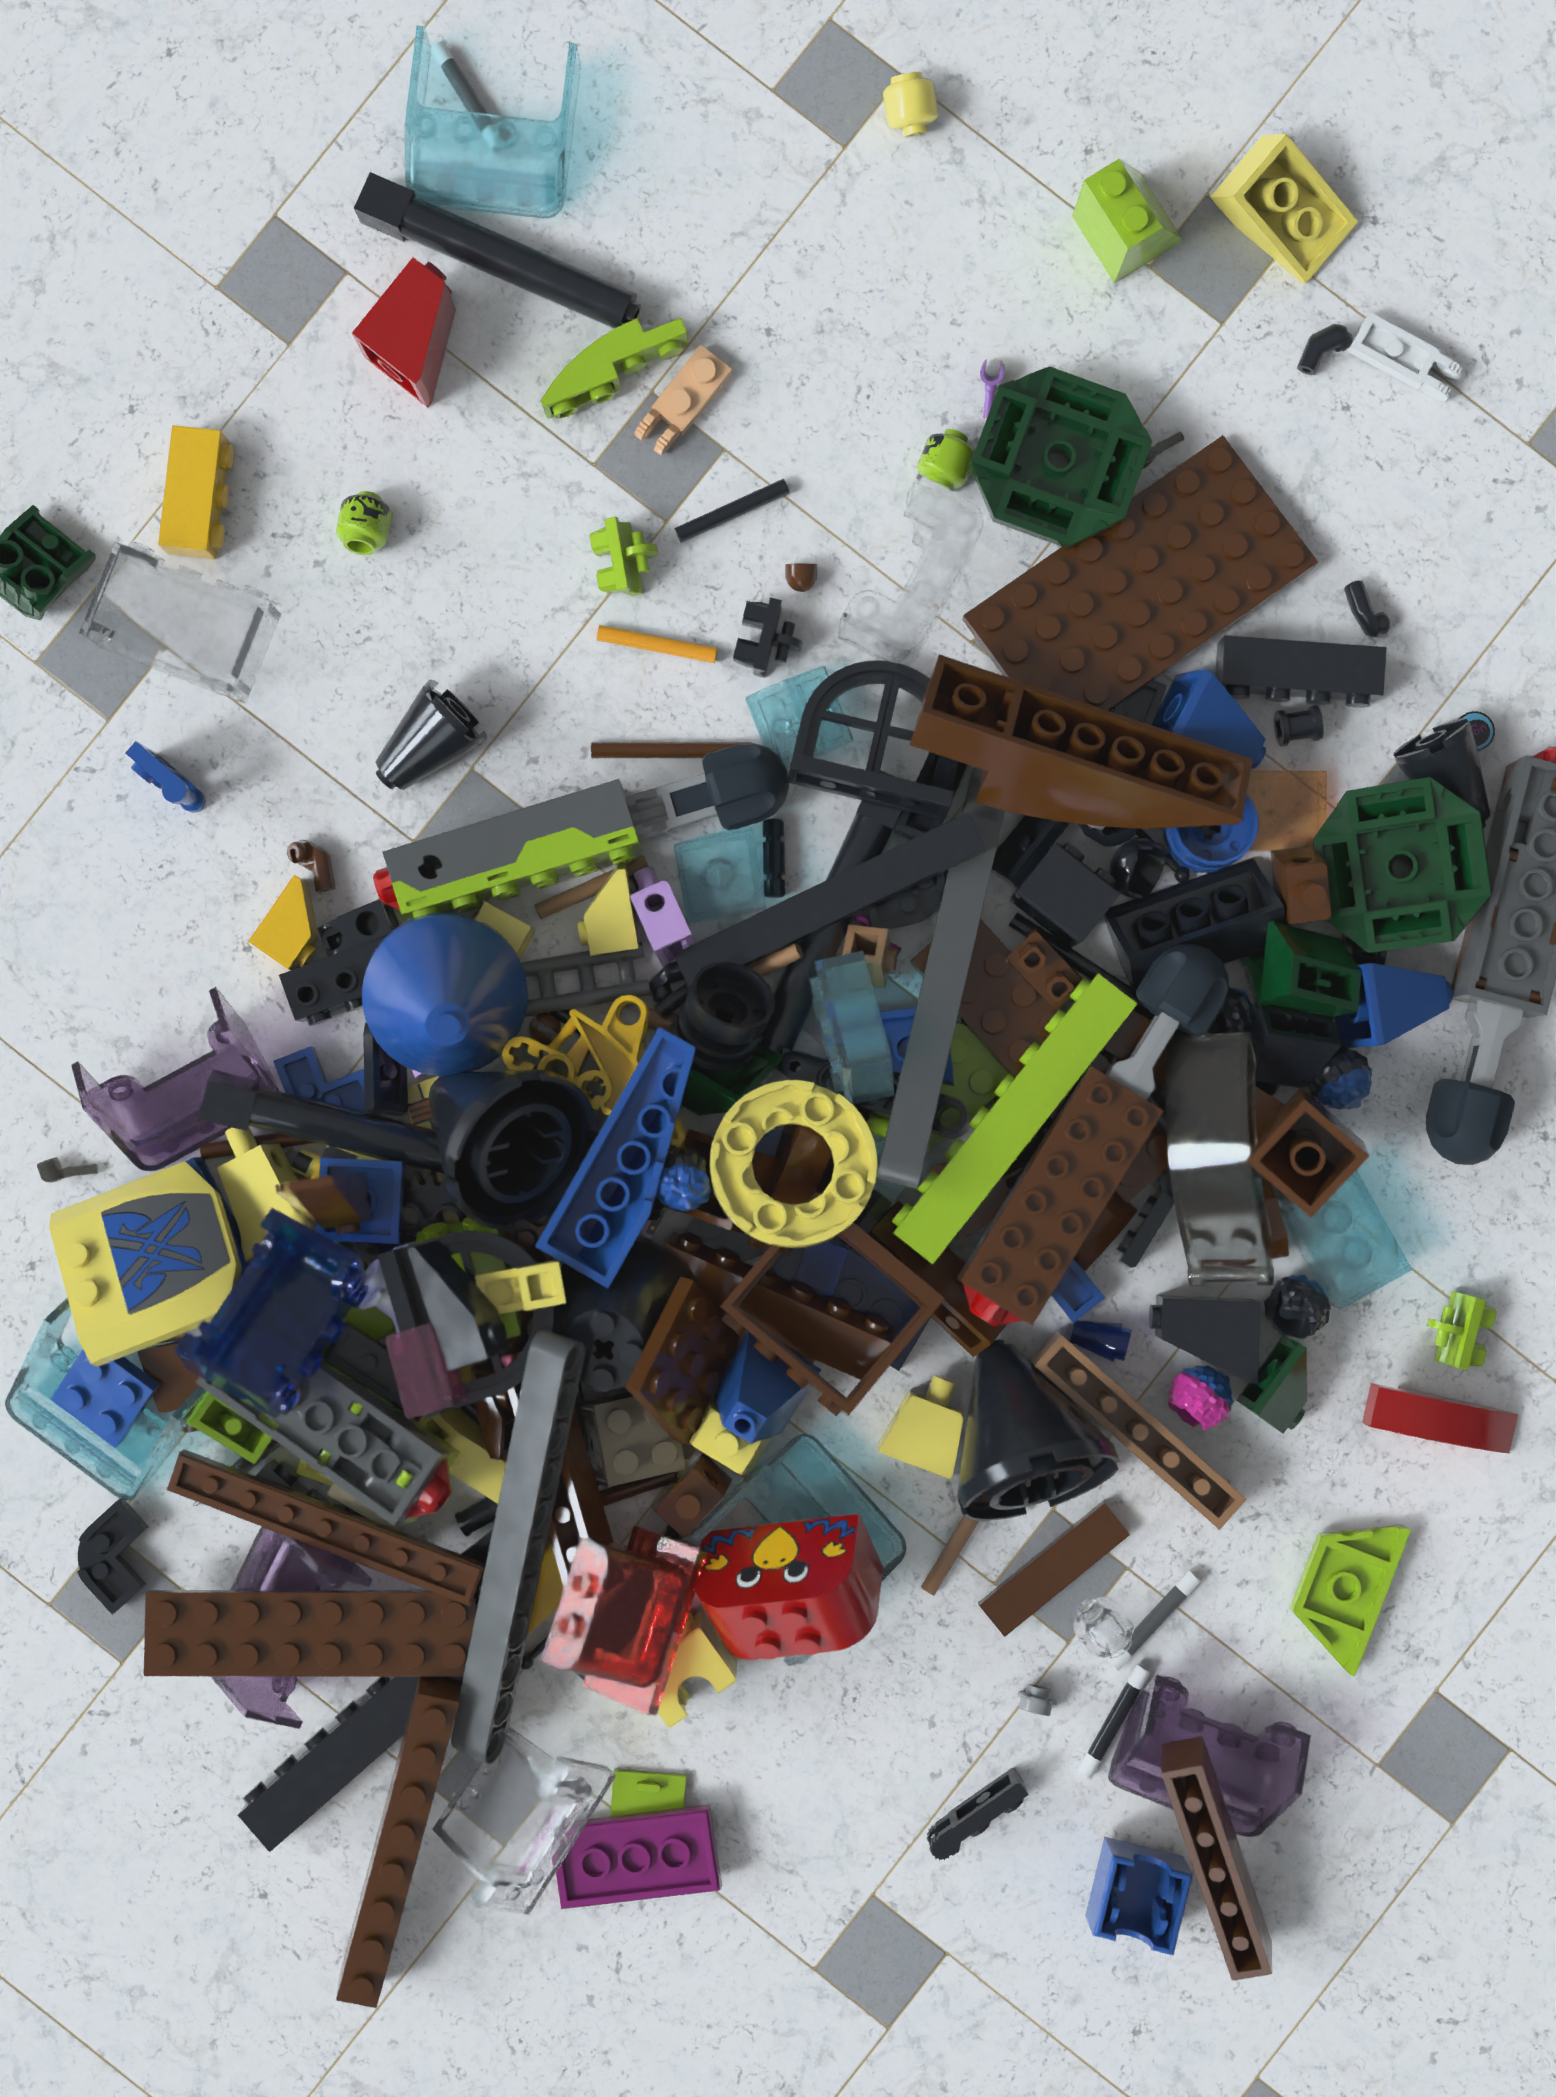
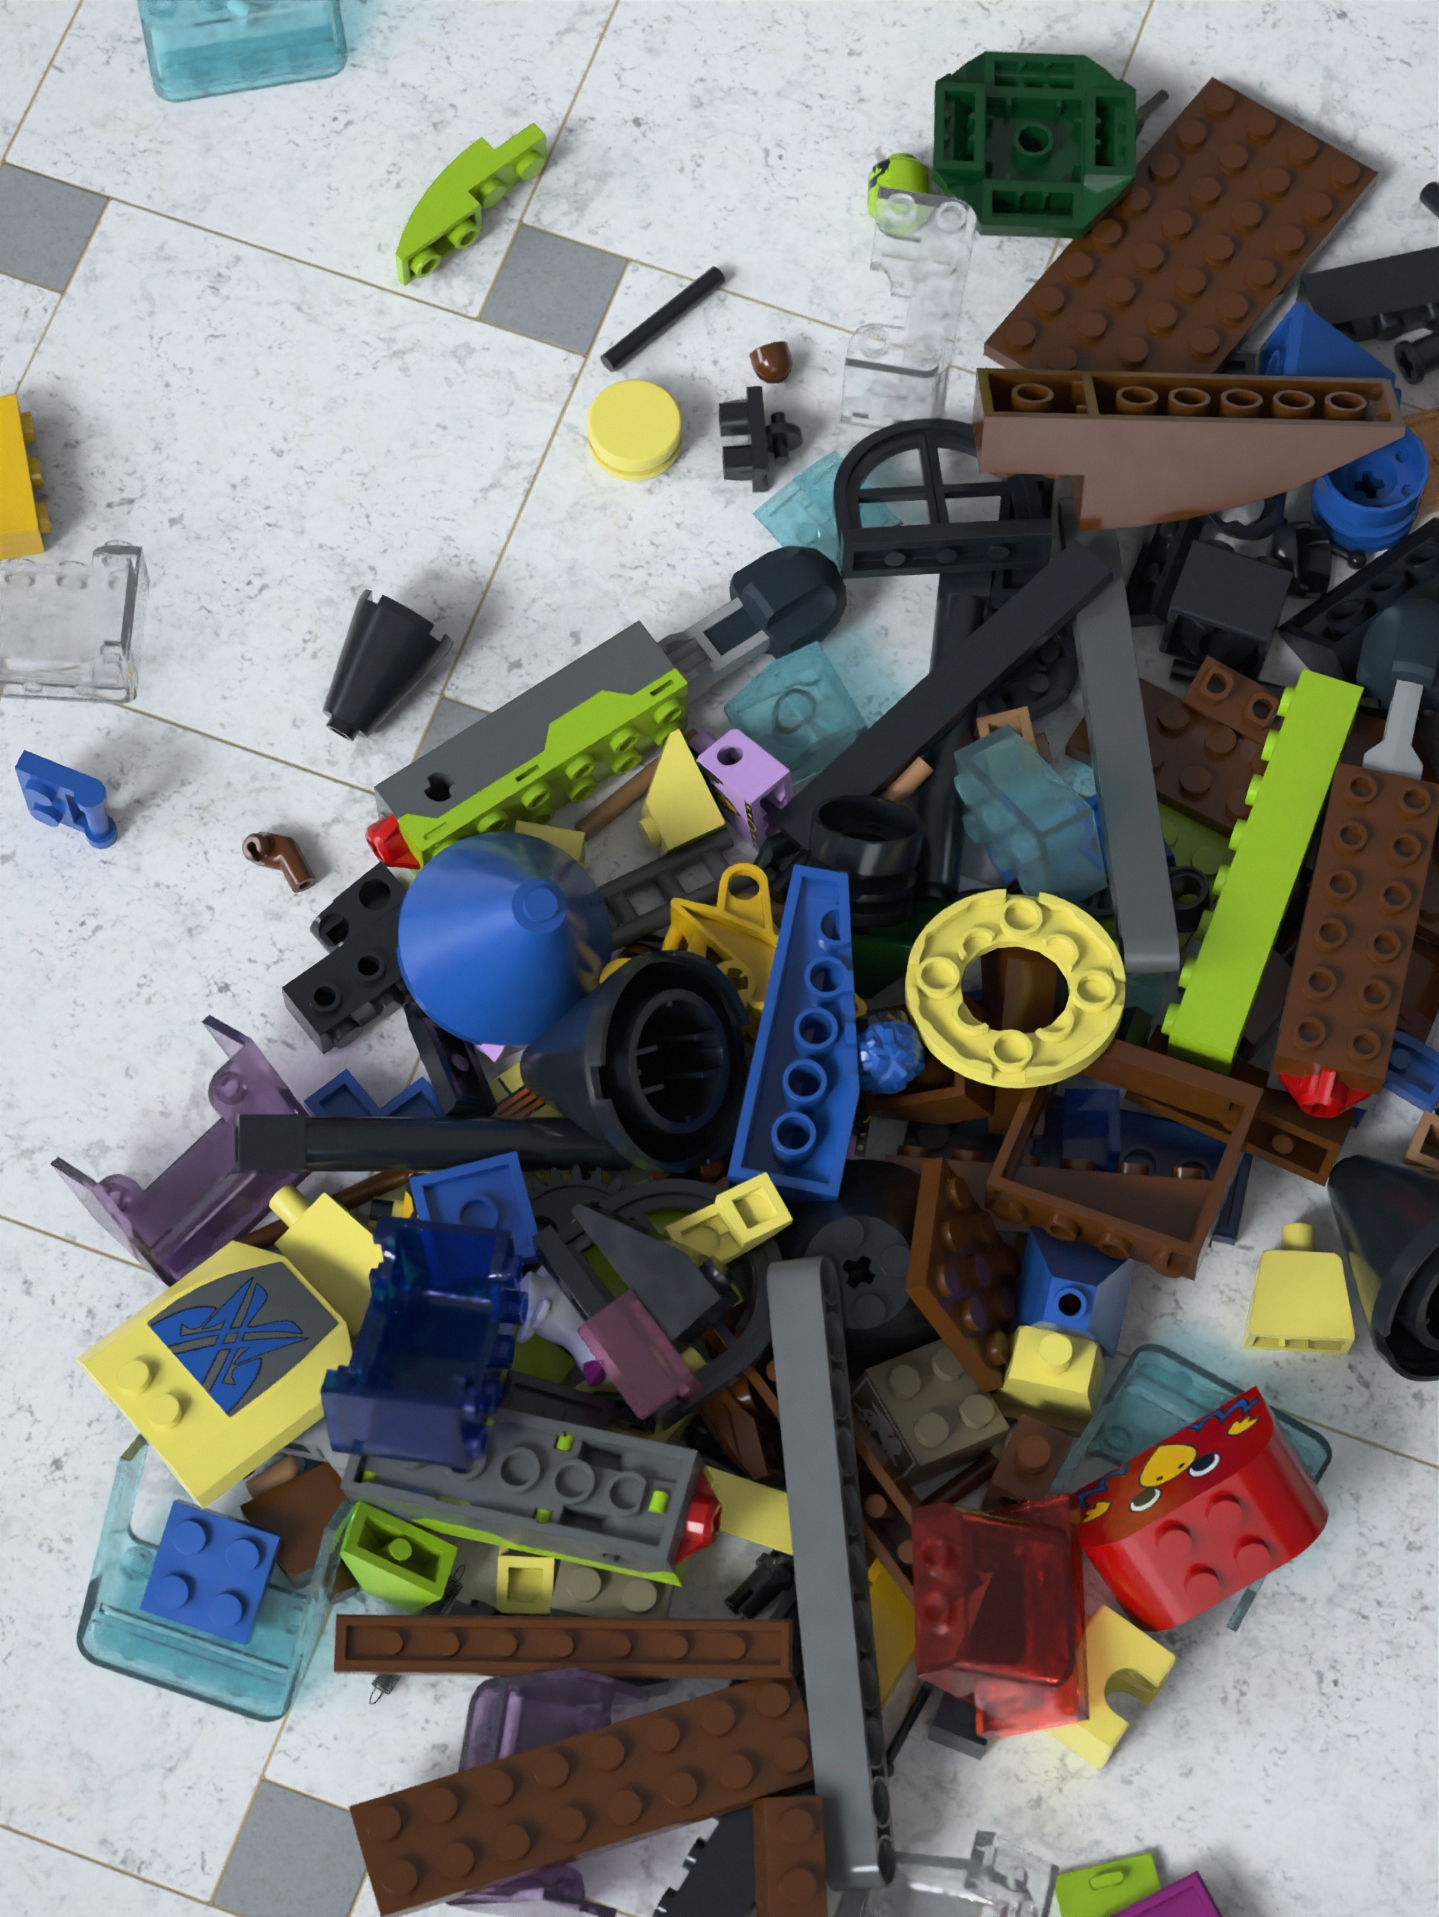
camera: 20 degrees left, 20 degrees down
(52, 1171) = (54, 1333): clear smoke hand -> none
(100, 1559) = (263, 1801): black plate -> none
(289, 927) = (272, 939): yellow slope -> none
(331, 1200) = (437, 1176): reddish brown wedge -> none
(364, 523) = (221, 452): lime head -> none
(403, 215) = (152, 112): black brick -> none
(410, 329) = (209, 226): red slope -> none
(628, 557) = (536, 386): lime hips -> none
(656, 749) = (657, 608): reddish brown bar -> none
(657, 644) = (624, 488): light orange bar -> none
(678, 600) = (634, 430): none -> light yellow head
(685, 398) = (564, 214): light nougat hinge -> none
(774, 858) = (843, 658): black axle -> none
(949, 1555) = (1389, 1442): medium nougat bar -> none
(990, 385) = (922, 105): medium lavender hand -> none

